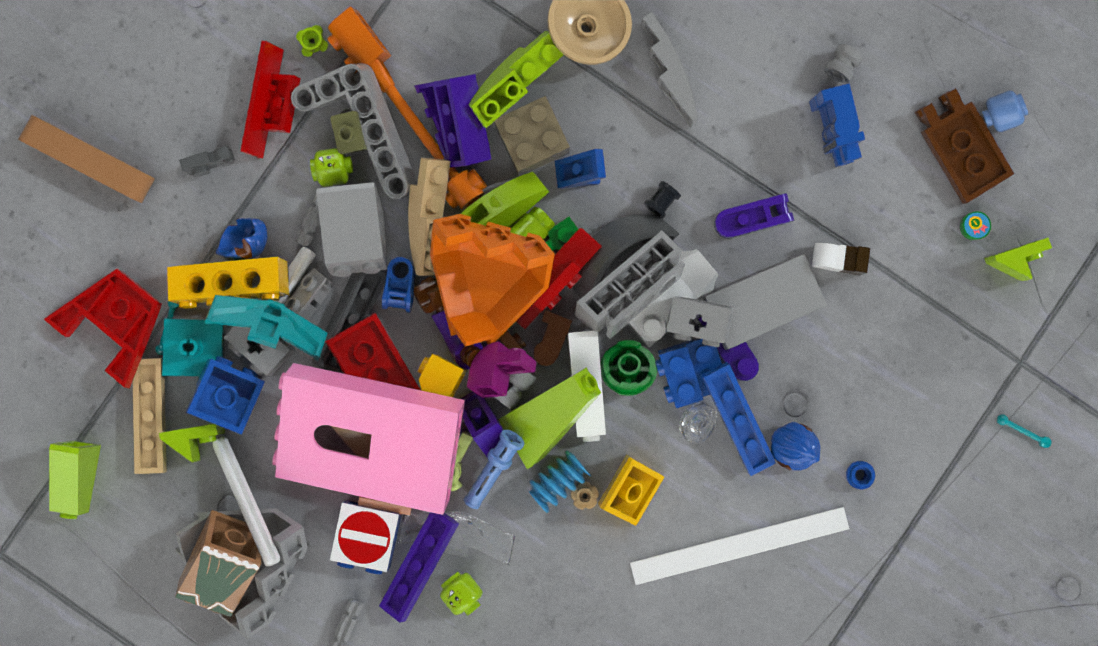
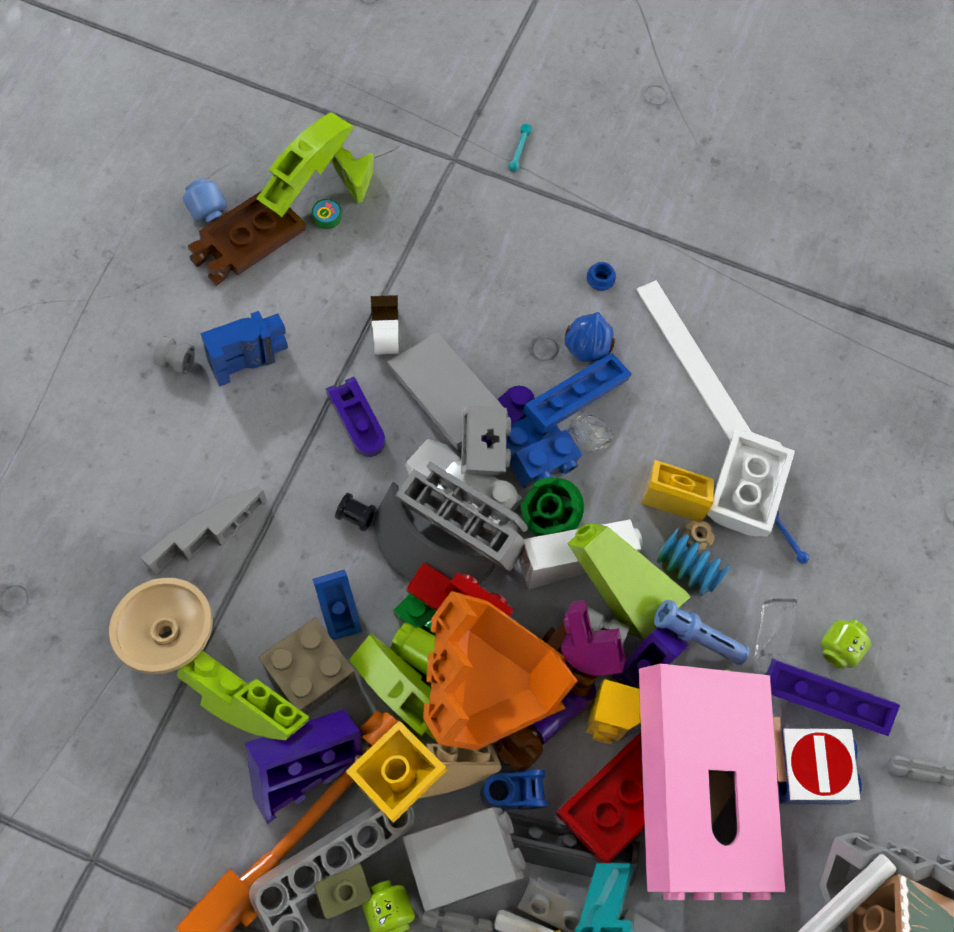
camera: 105 degrees left, 20 degrees down
(423, 185) = (396, 771): none -> yellow slope
(548, 350) = (539, 600): reddish brown leg -> none
(592, 569) = (802, 557): none -> blue hinge
(624, 557) = (751, 484): none -> white slope
(1032, 207) = (303, 156): none -> lime slope

